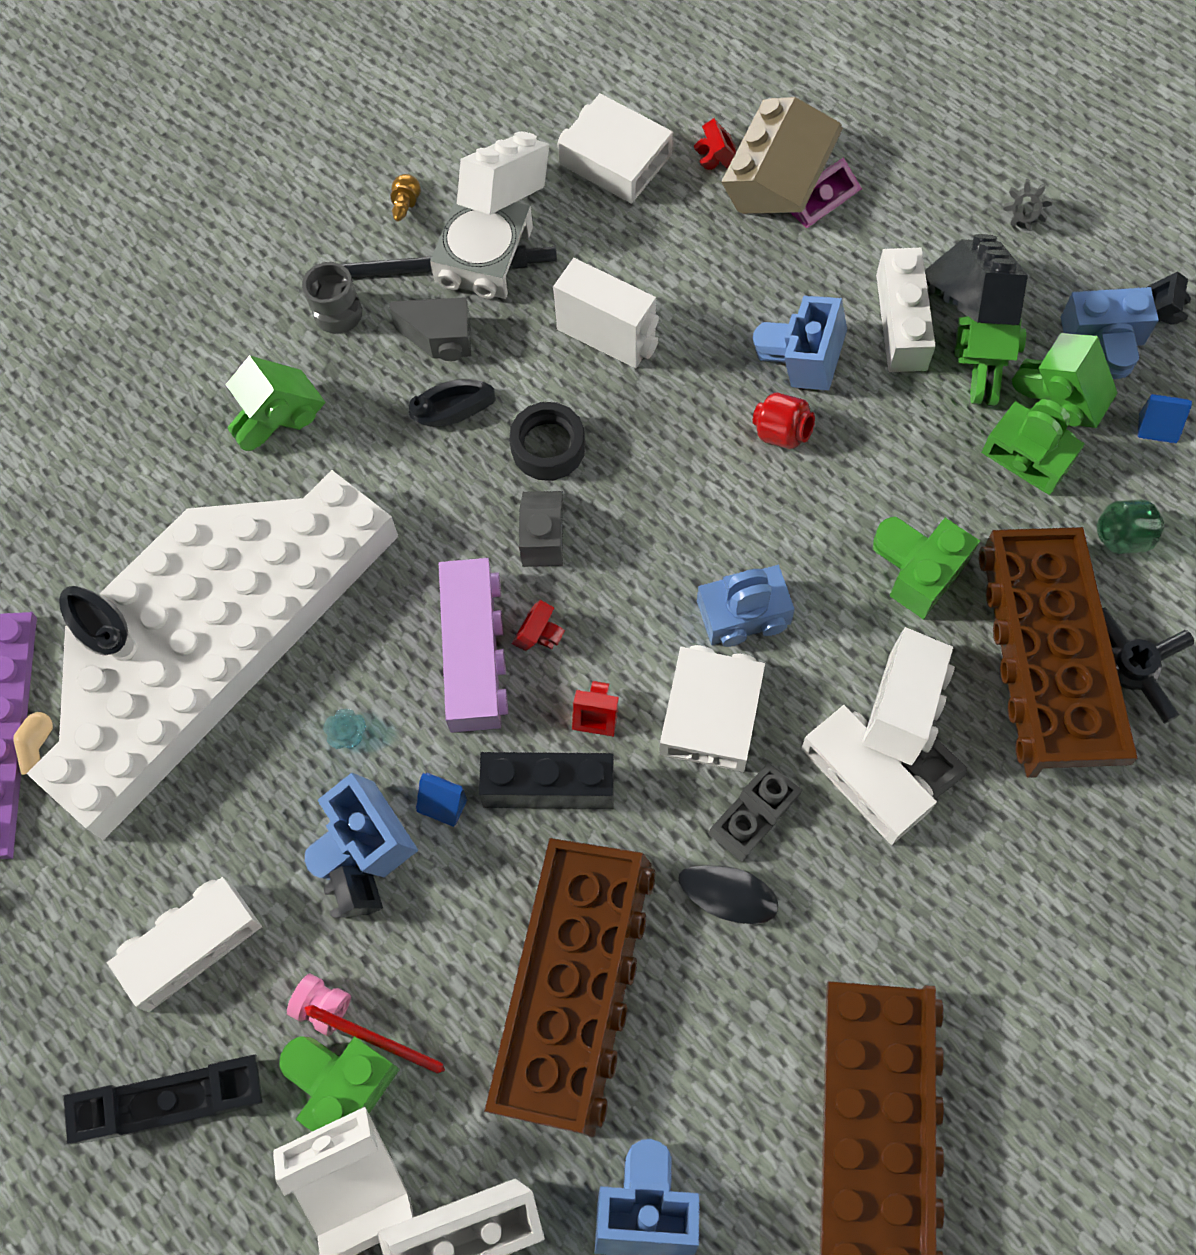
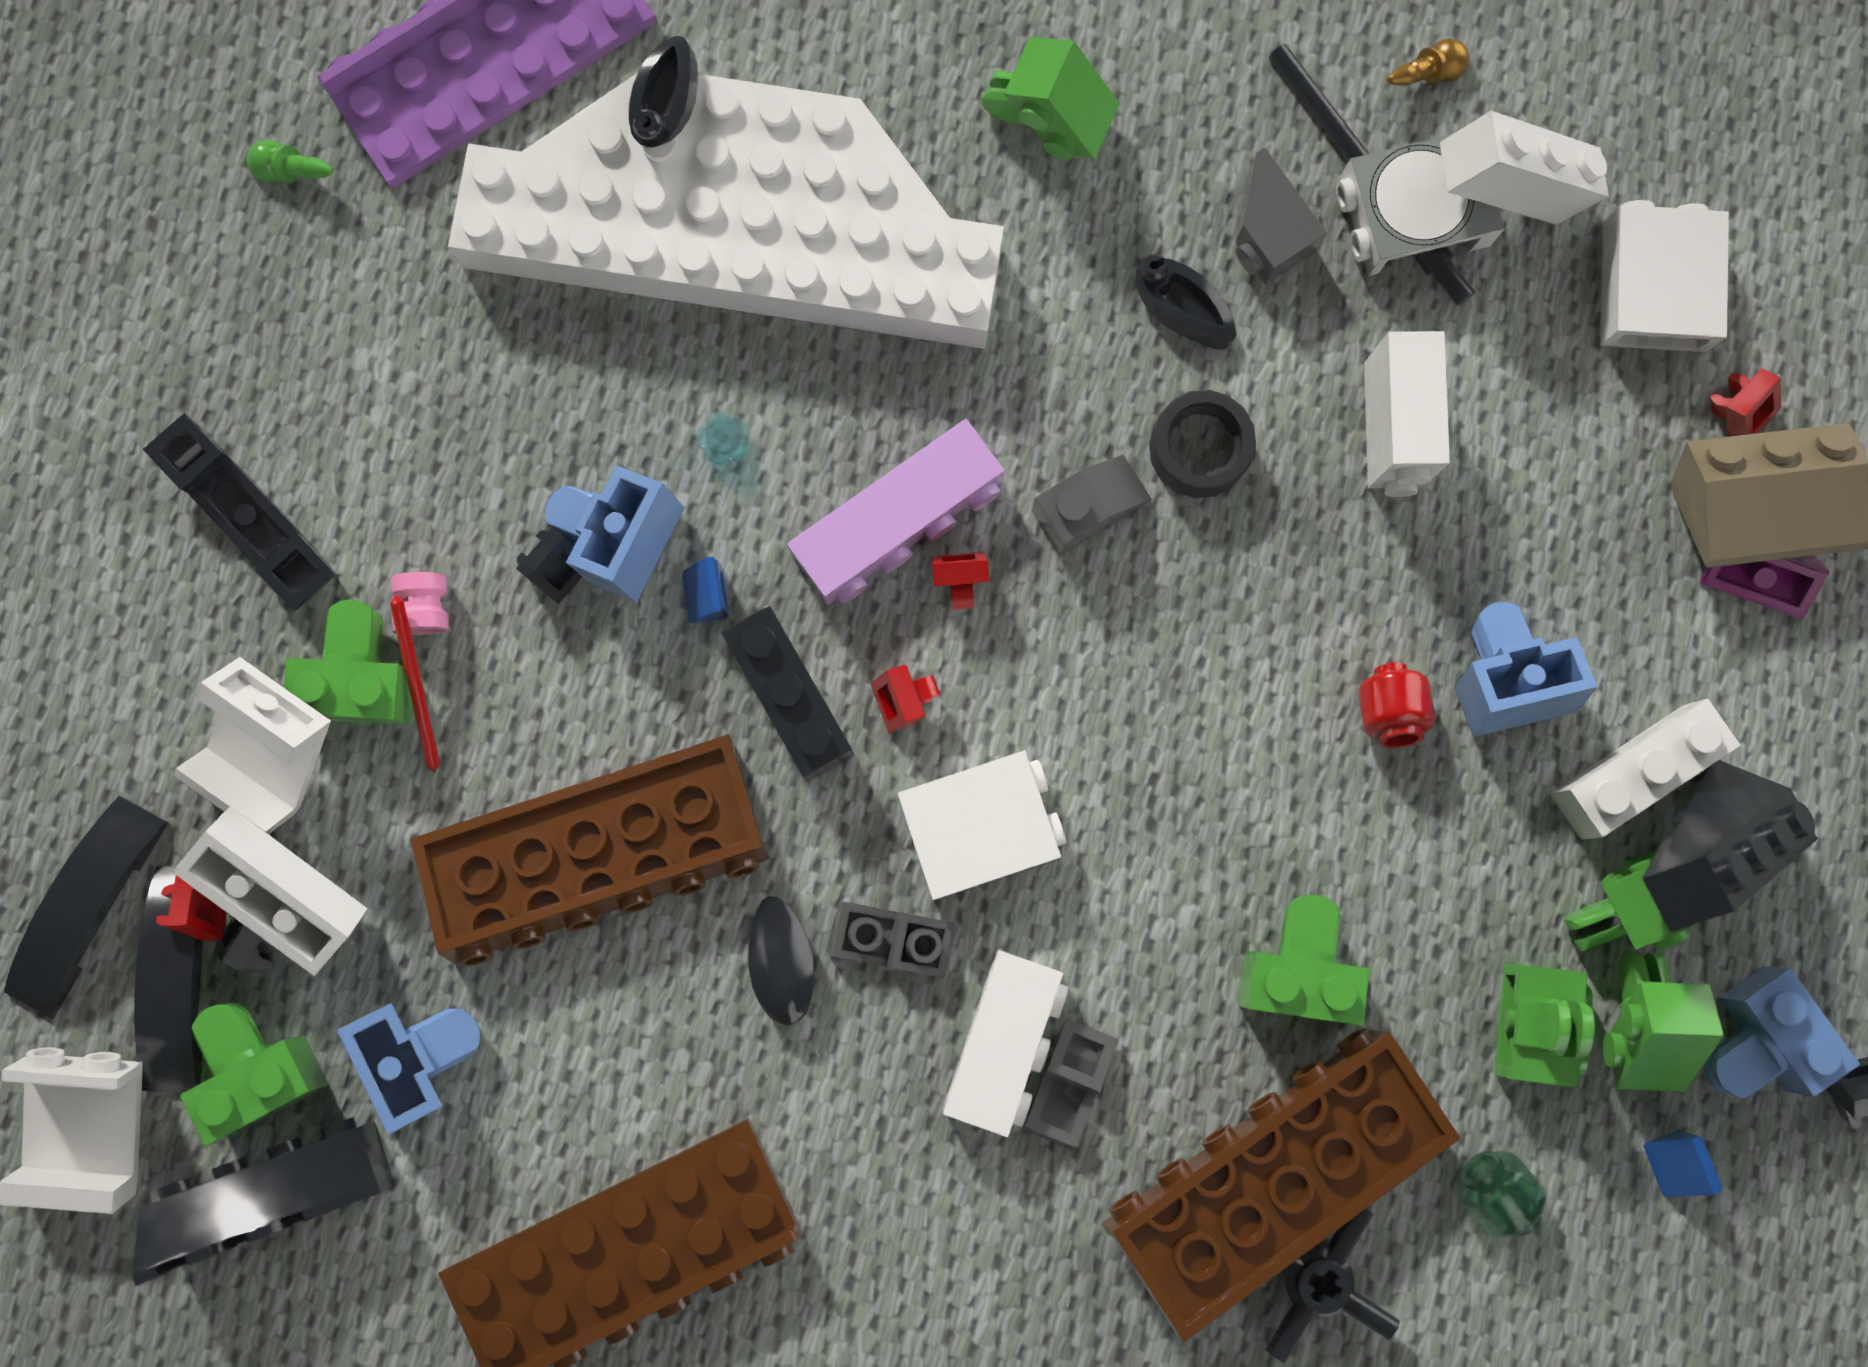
camera: 55 degrees right, 15 degrees up
(30, 738) = (517, 116): tan arm -> none
(183, 944) = (401, 425): white brick -> none
(332, 297) = (1233, 75): dark grey wheel -> none
(745, 605) = (1126, 794): medium blue brick -> none
(910, 697) = (1116, 1043): white brick -> none

